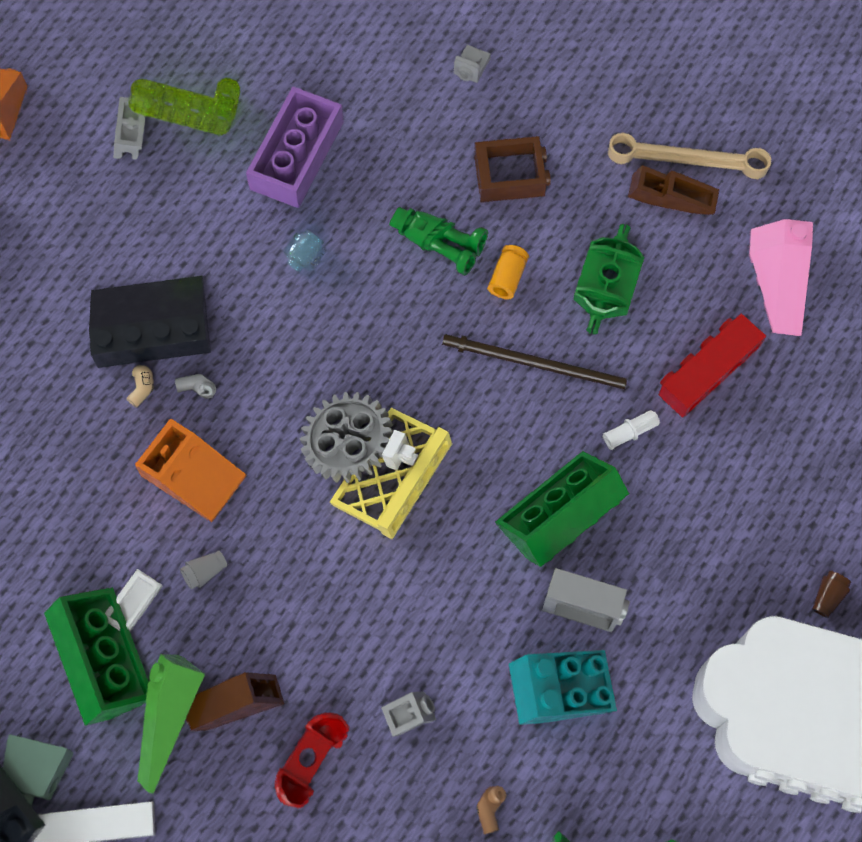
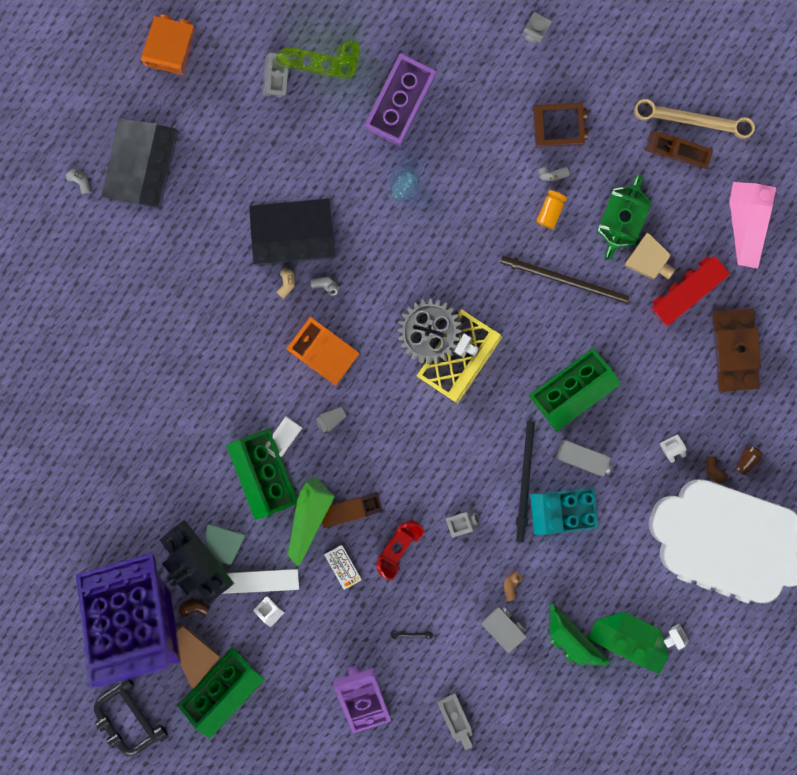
camera: 10 degrees right, 20 degrees up
(223, 794) = (343, 567): none -> white tile
(430, 231) = (495, 173): green piece -> none
(498, 704) = (521, 520): none -> black bar
(499, 231) = (555, 175): none -> light grey arm
(631, 429) = (628, 334): white axle -> none
(650, 327) = (650, 259): none -> tan torso
(715, 581) = (673, 447): none -> white tile
(777, 609) = (713, 472): none -> reddish brown arm
(790, 443) = (736, 350): none -> reddish brown brick

